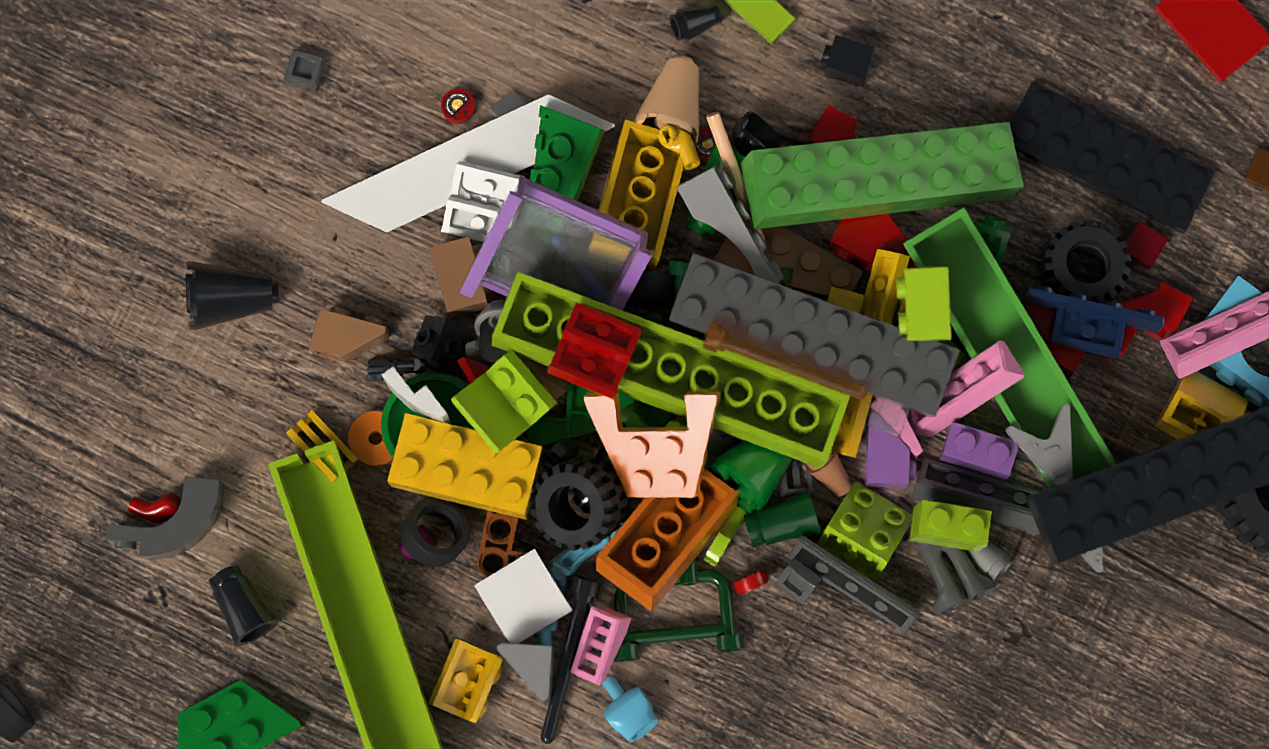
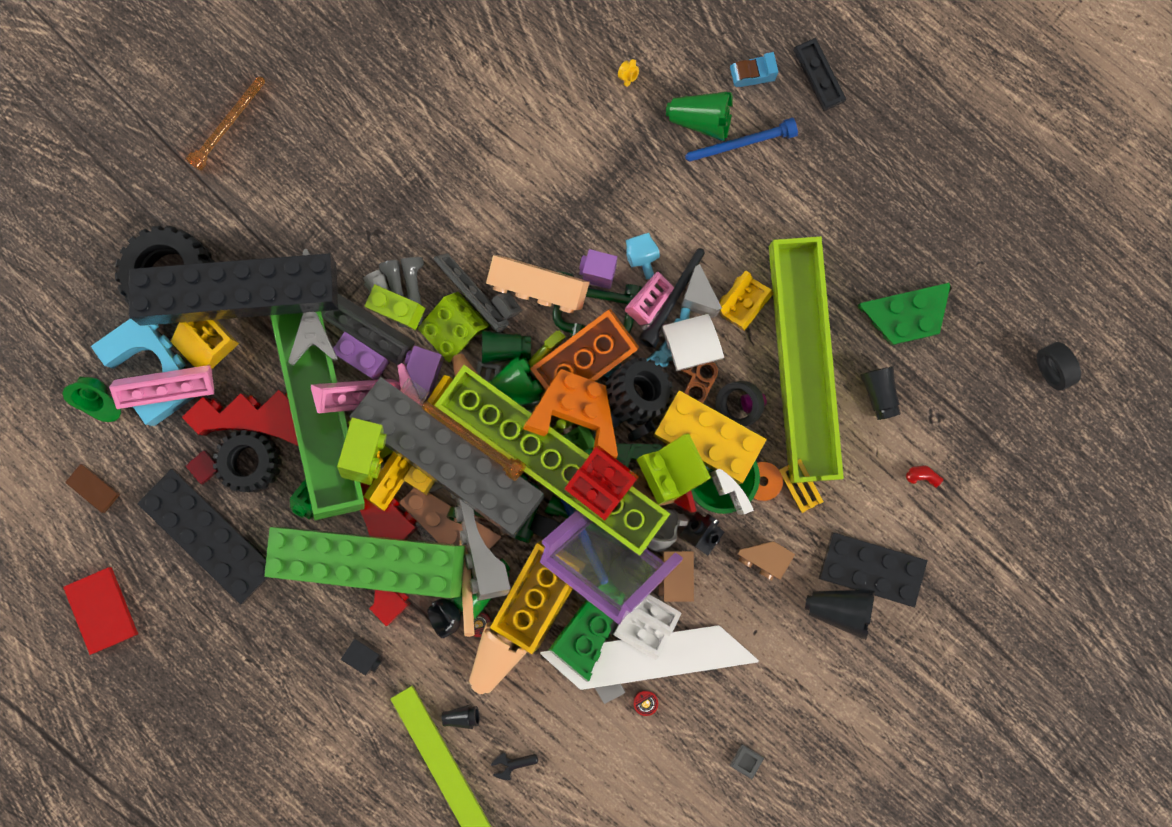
camera: 165 degrees left, 5 degrees up
(188, 526) = (898, 461): dark grey arch -> none
(196, 362) = (874, 568): none -> black plate
(380, 366) = (744, 527): black piece -> none
(681, 143) = (497, 624): yellow arm -> none
(684, 663) = (598, 268): none -> medium lavender brick
(751, 581) = (538, 314): red tile -> none
(763, 620) = (538, 283): none -> light nougat brick
(1089, 324) = (256, 414): dark blue bracket -> none

